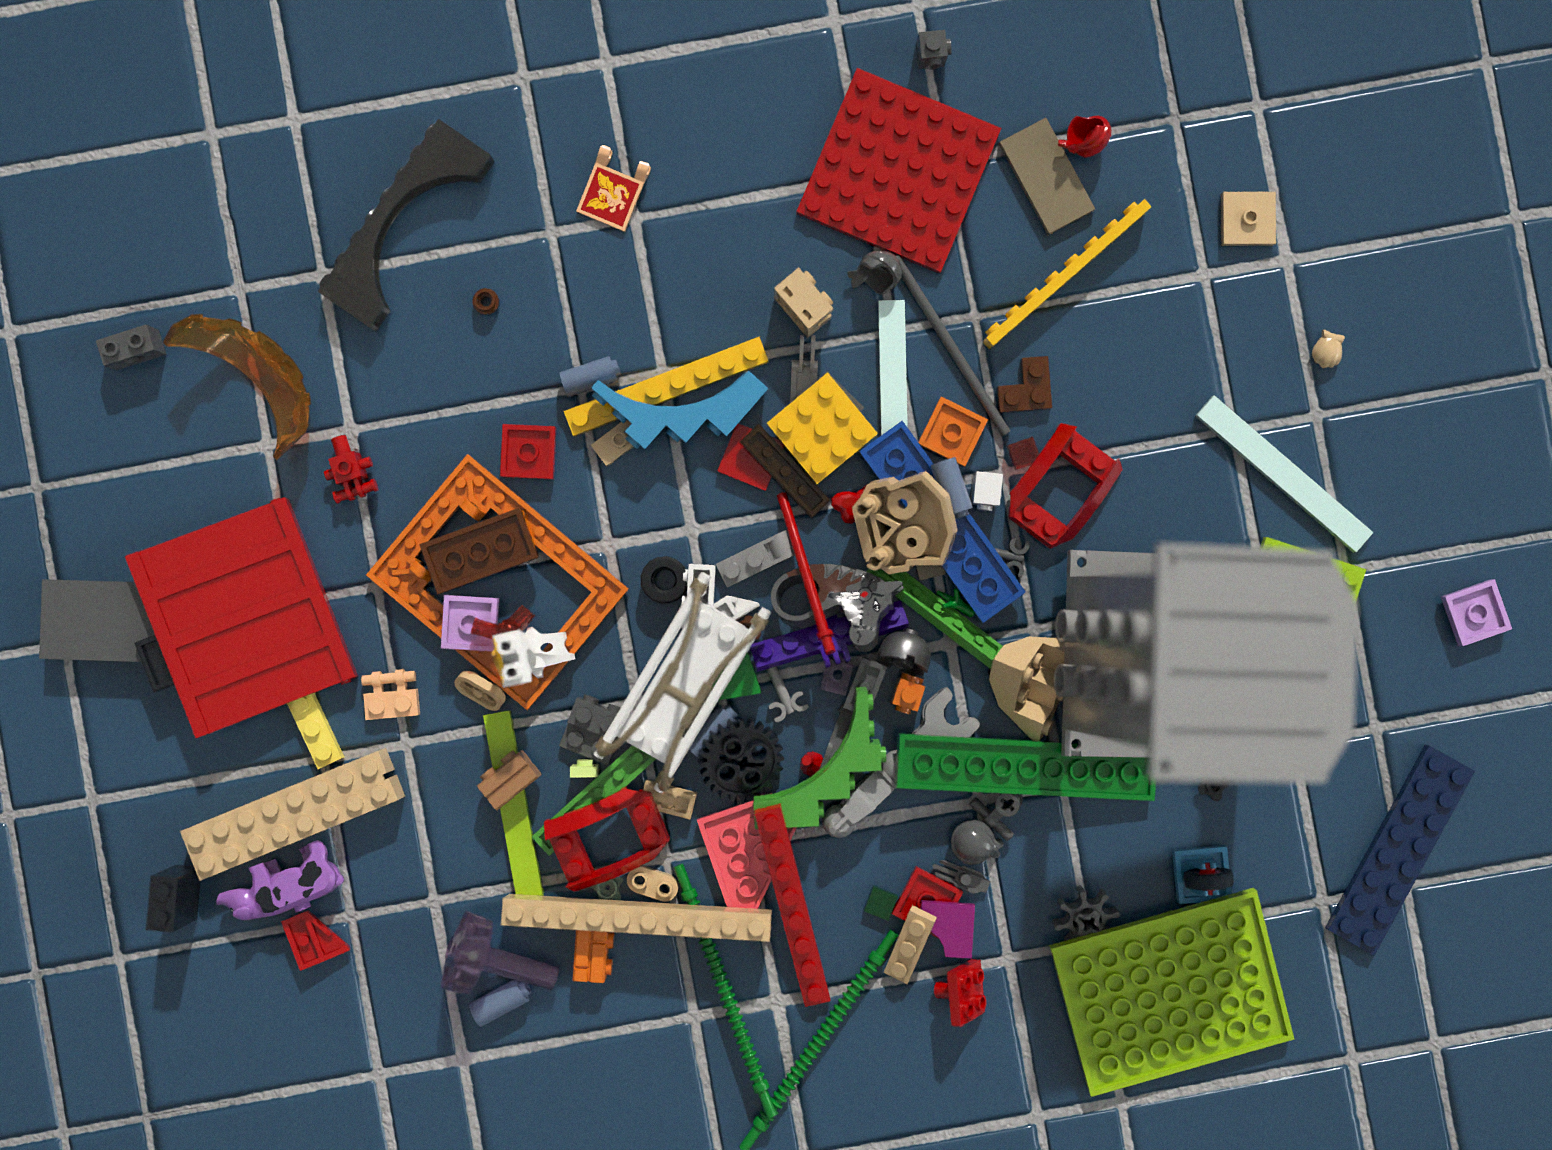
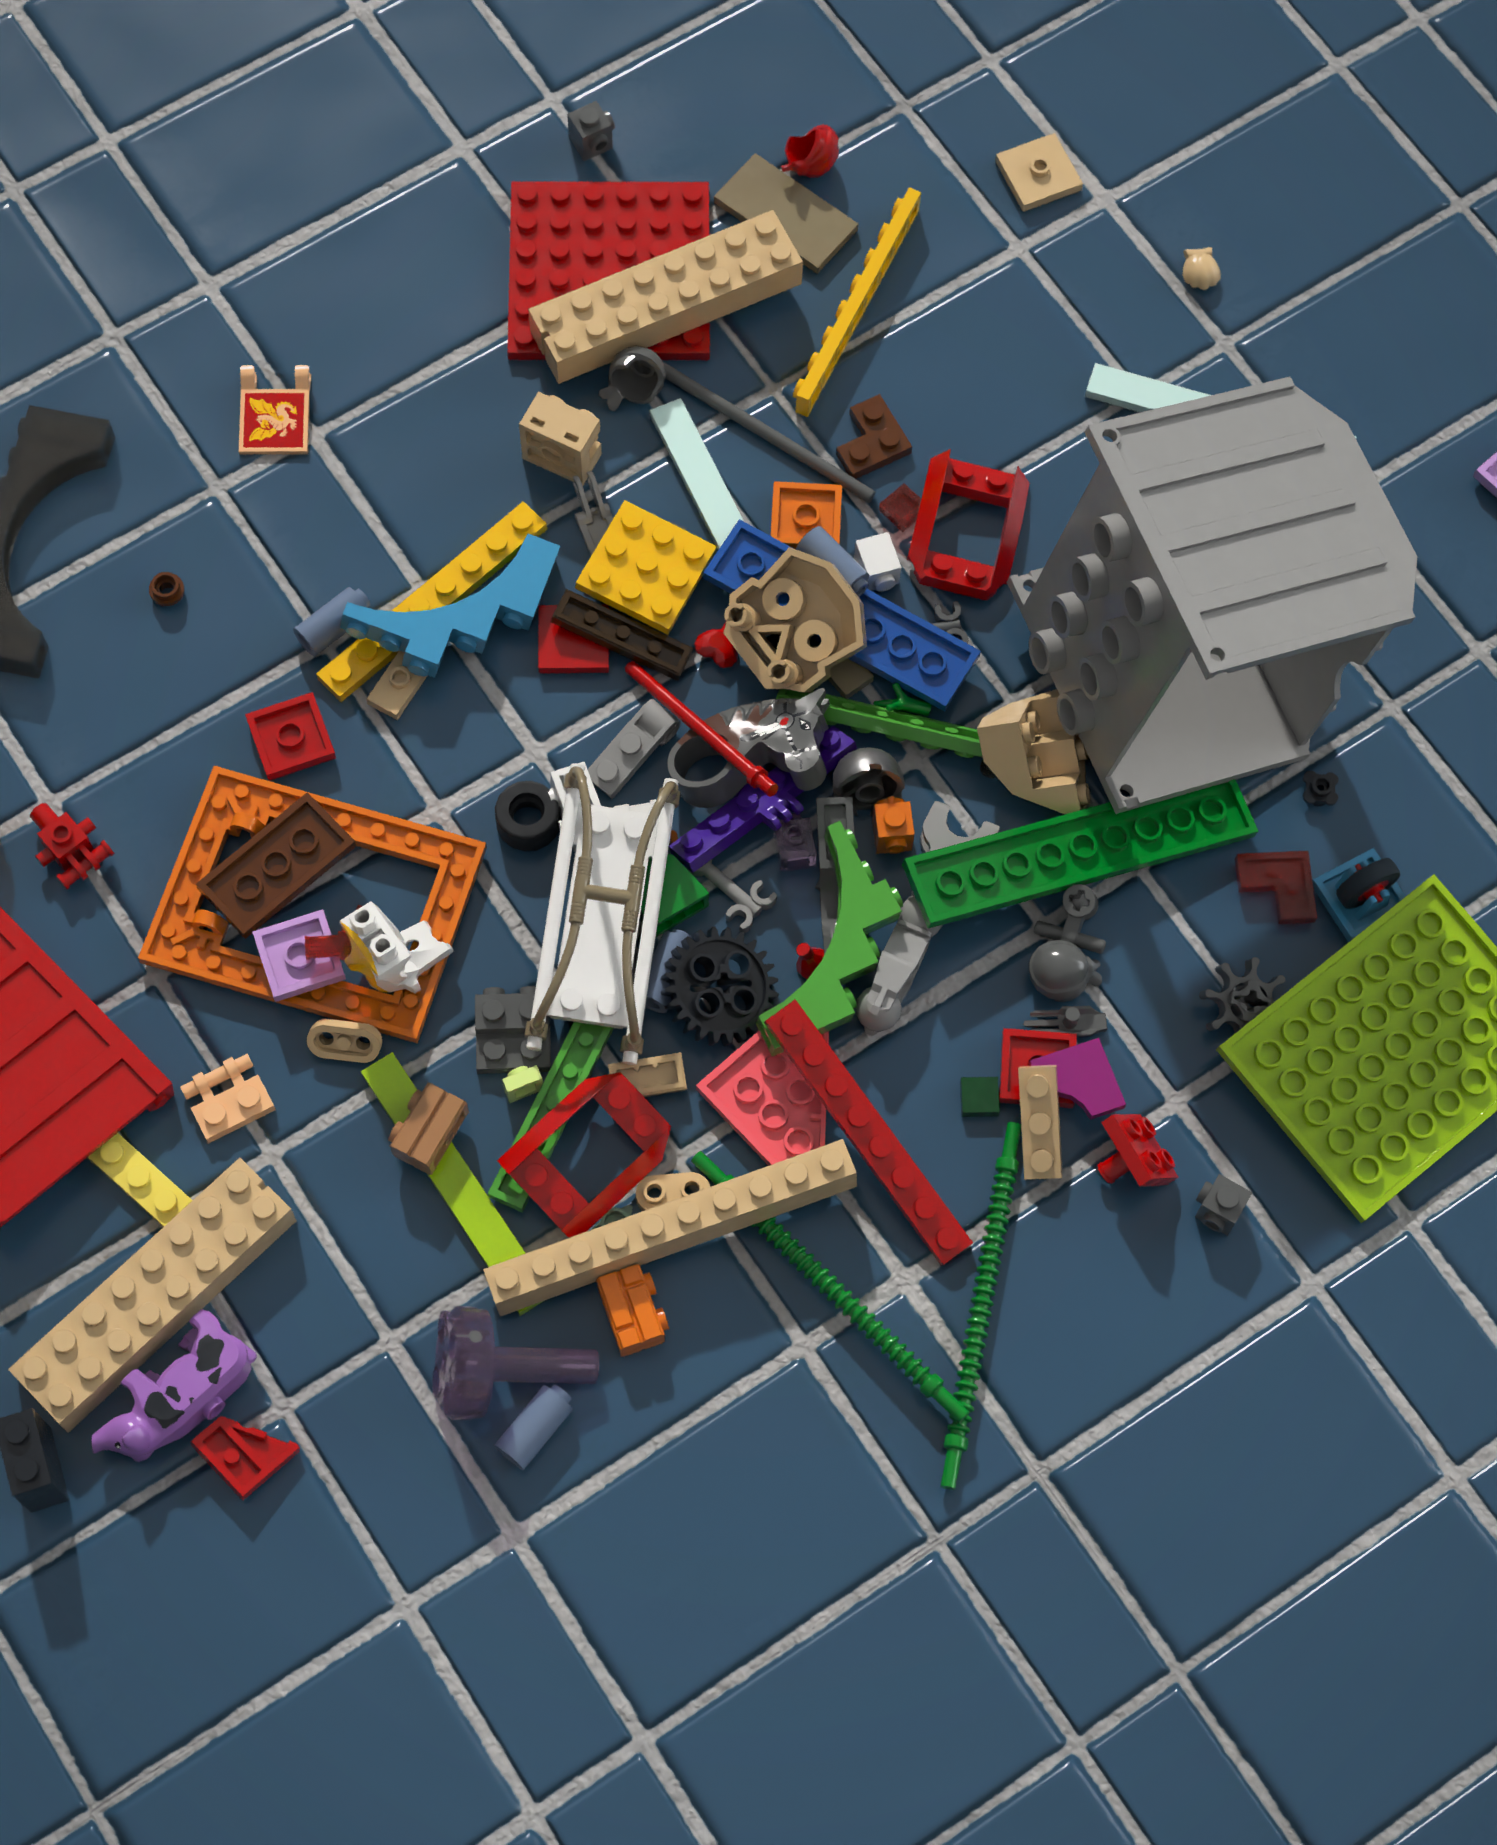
camera: 25 degrees left, 20 degrees down
(927, 218) = (666, 295): none -> tan piece
(1002, 1048) = (1221, 1204): none -> dark grey brick
(1159, 842) = (1285, 874): none -> clear red plate

